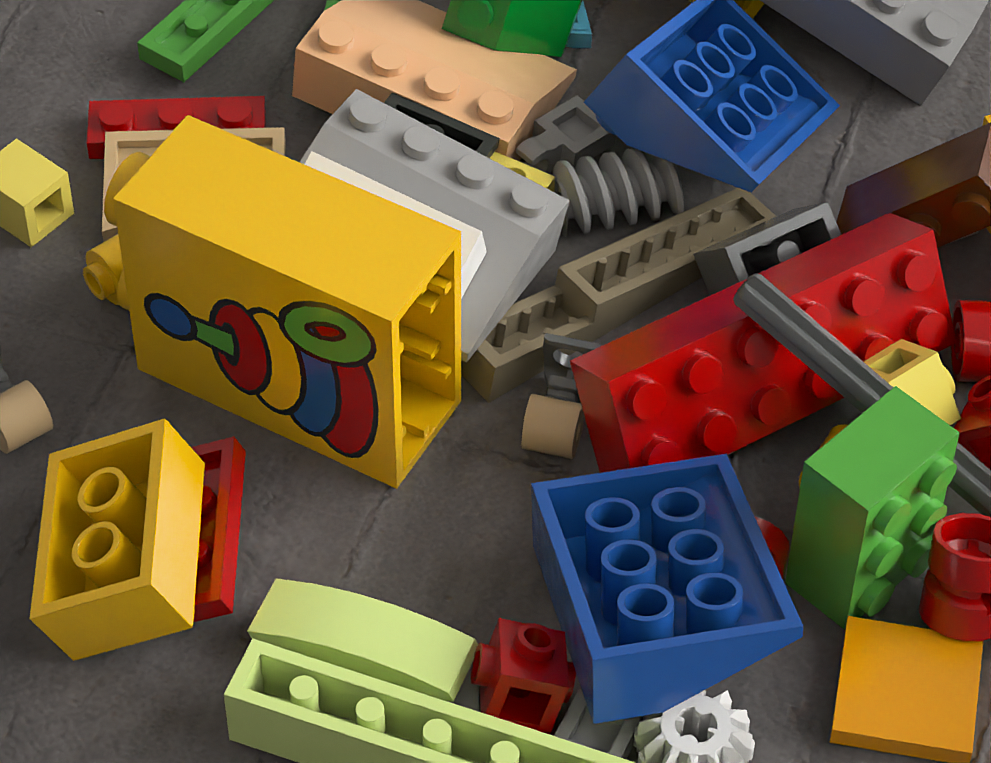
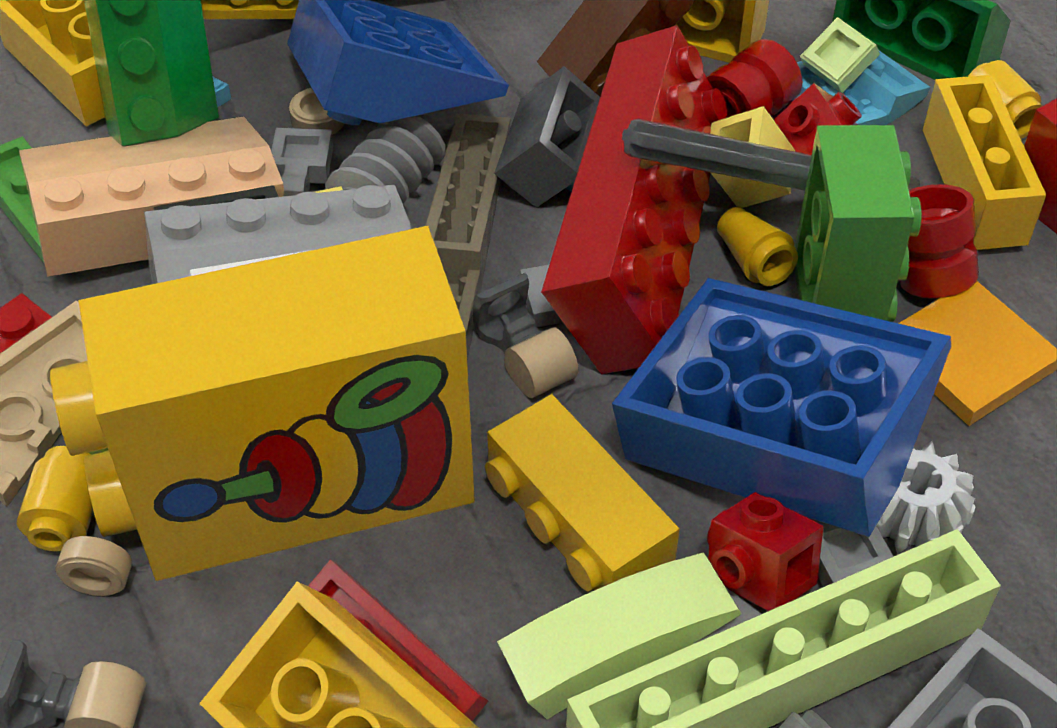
camera: 45 degrees left, 0 degrees up
(101, 323) = (93, 566): none -> tan tile
(452, 533) = (578, 496): none -> yellow brick

